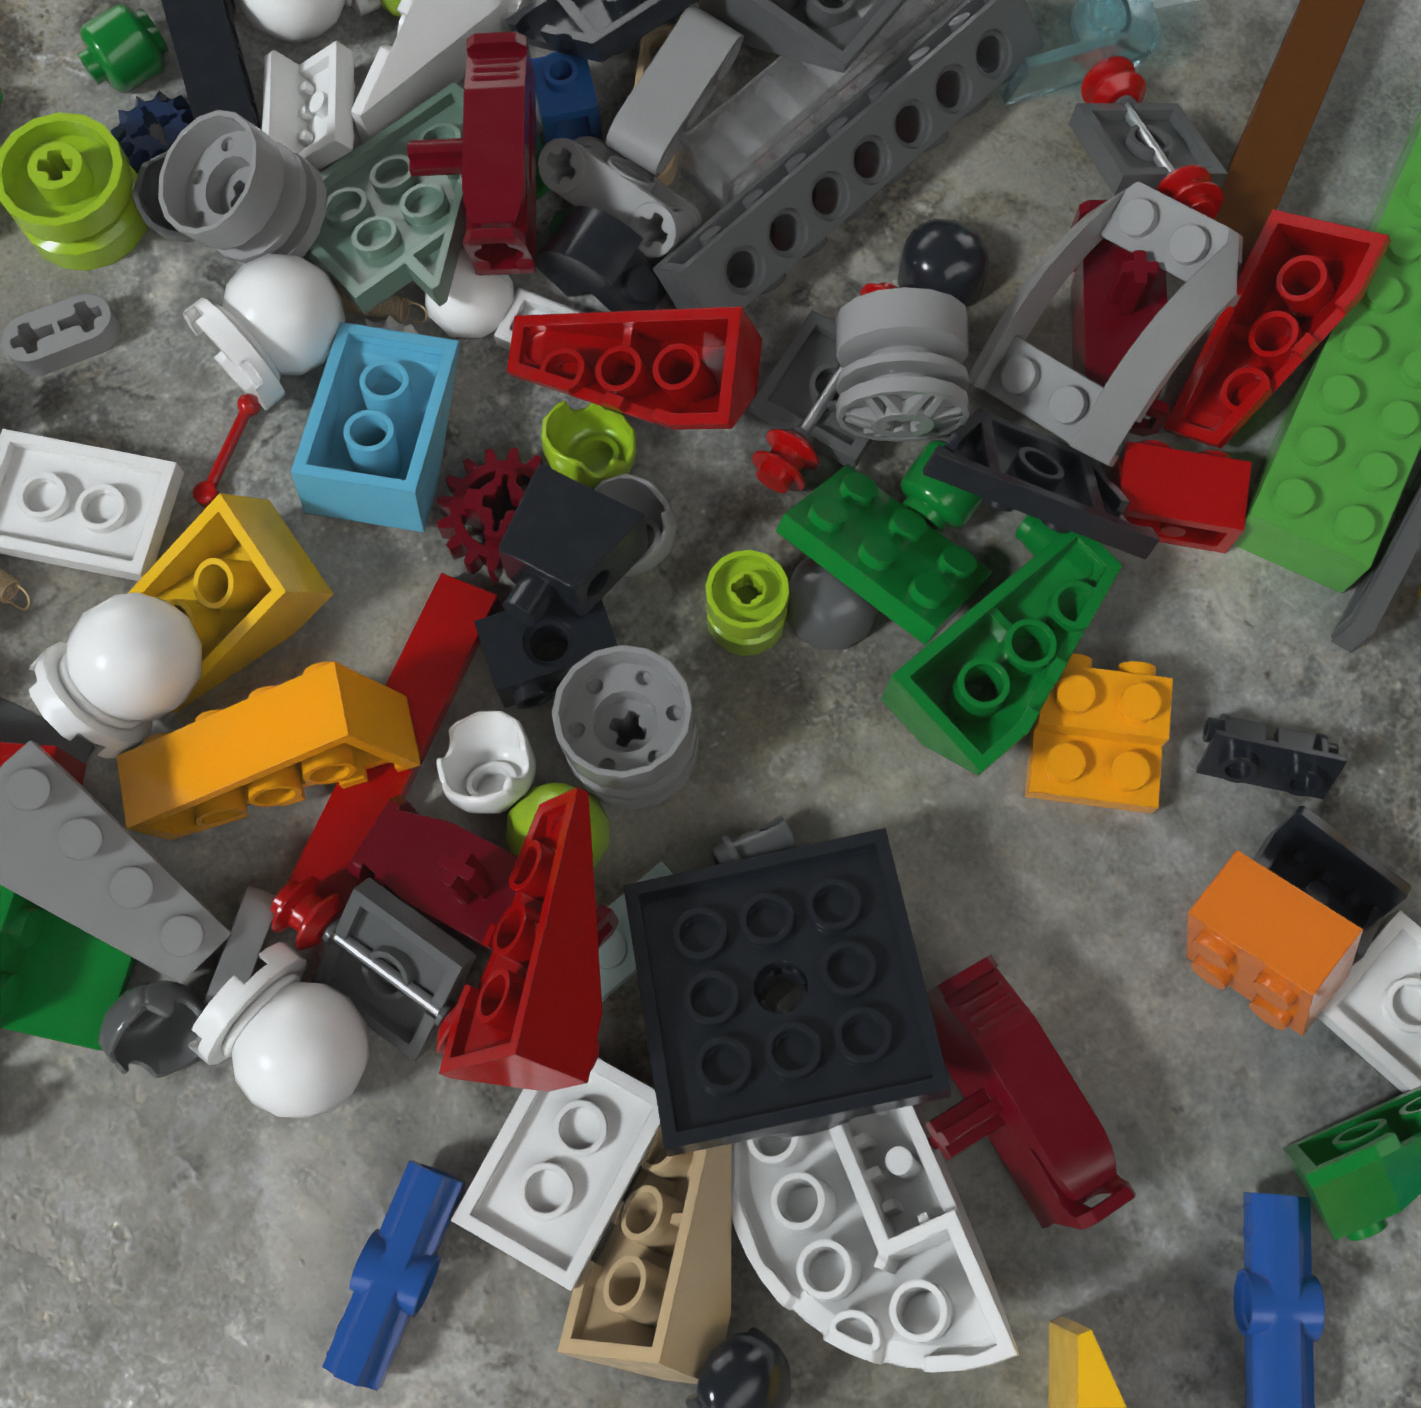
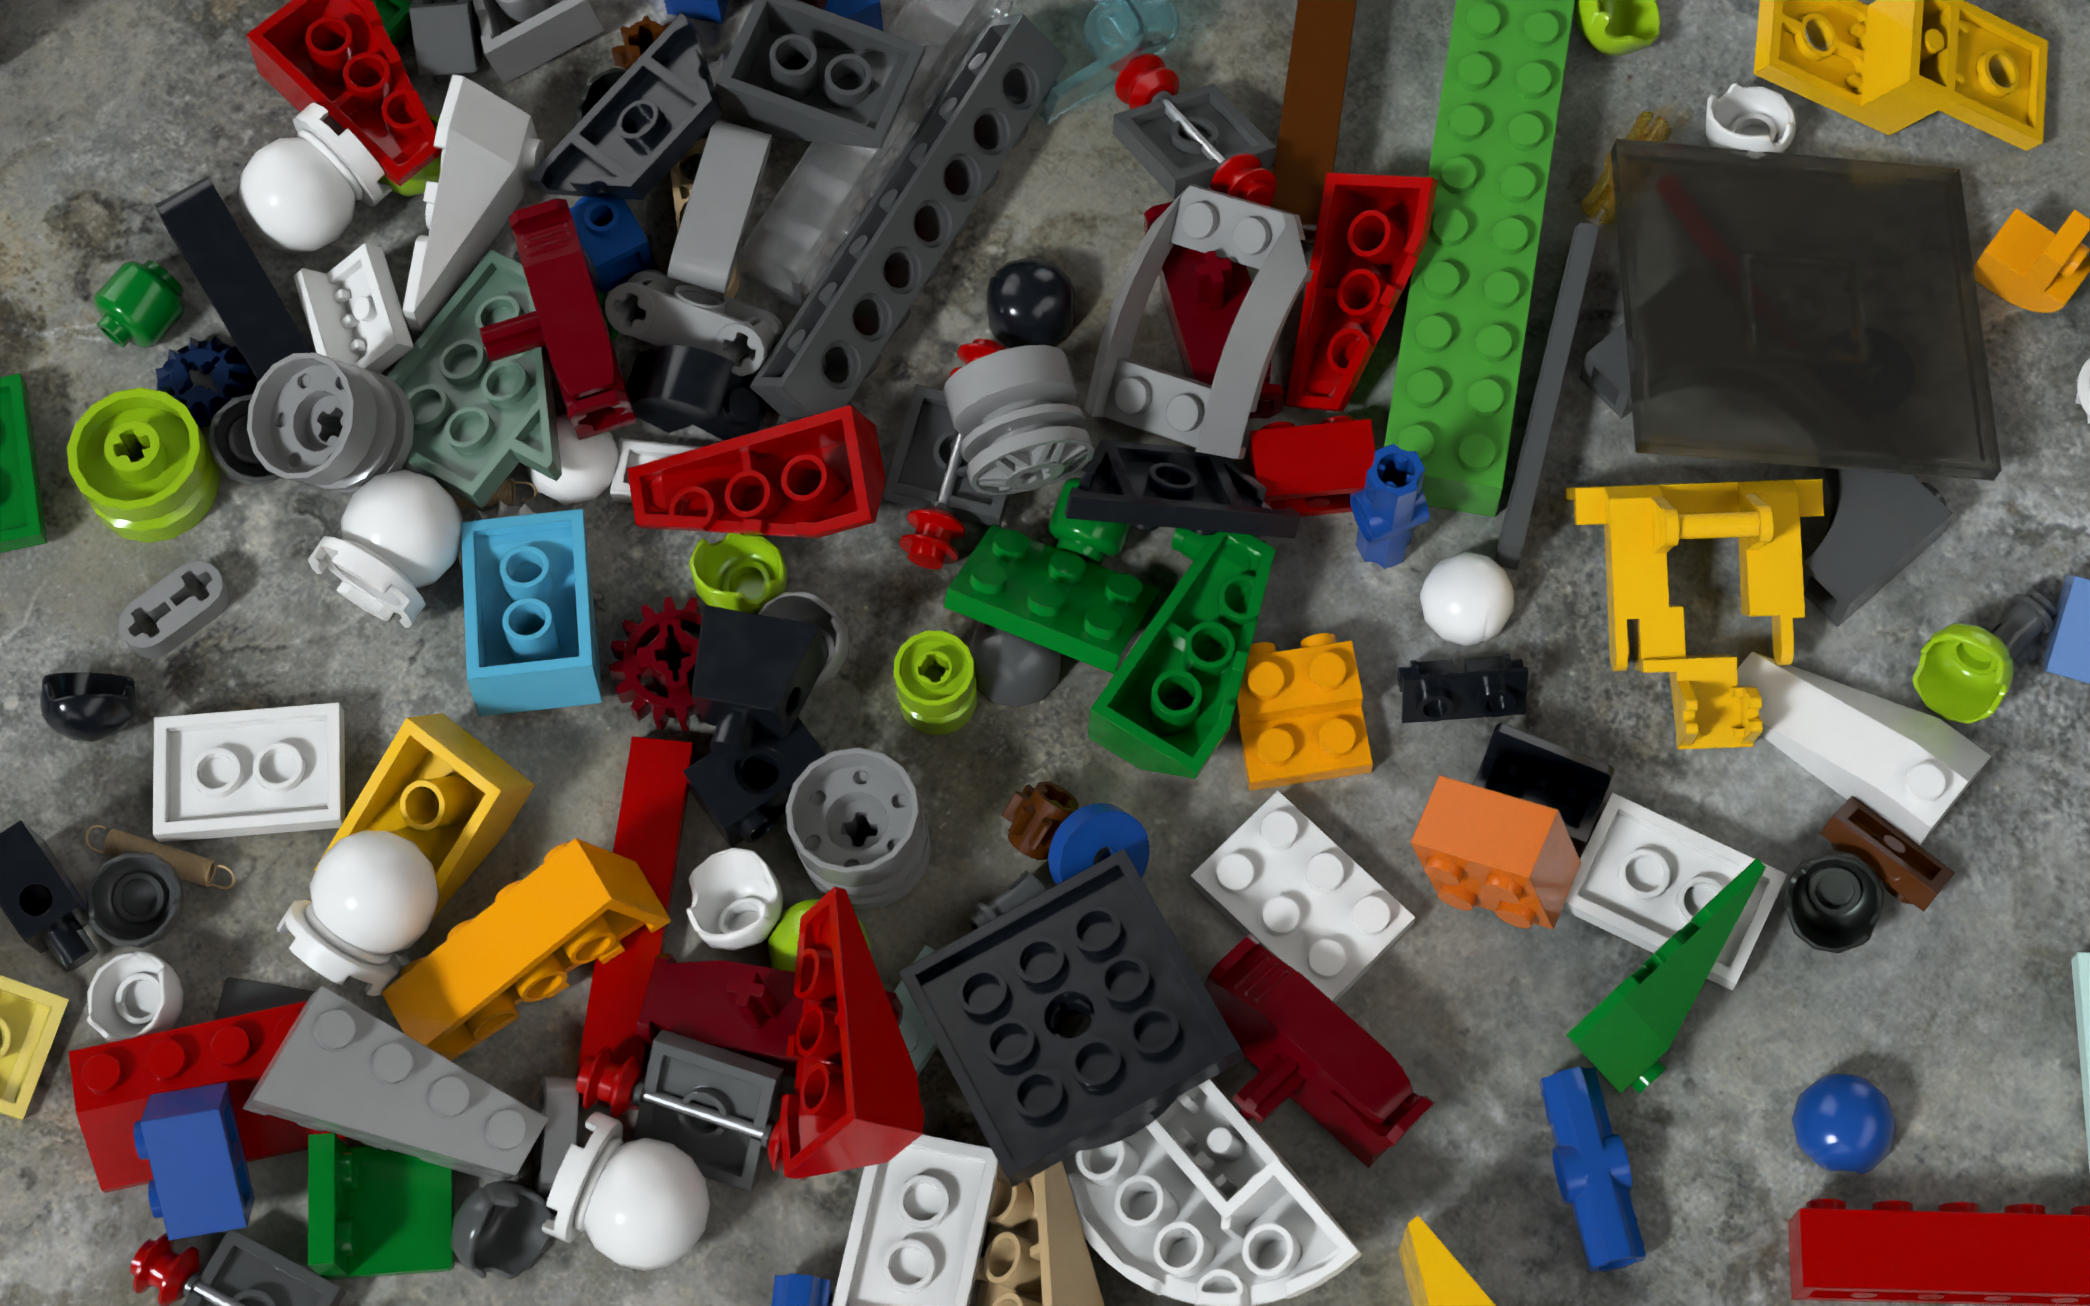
camera: 15 degrees left, 5 degrees down
(207, 490) = (372, 724): red hinge -> none
(812, 771) = (1037, 817): none -> reddish brown gear
(858, 797) = (1089, 831): none -> blue piece
(1050, 924) = (1302, 897): none -> white plate
(1255, 552) = (1389, 506): none -> blue piece
(1296, 667) = (1467, 598): none -> white hair

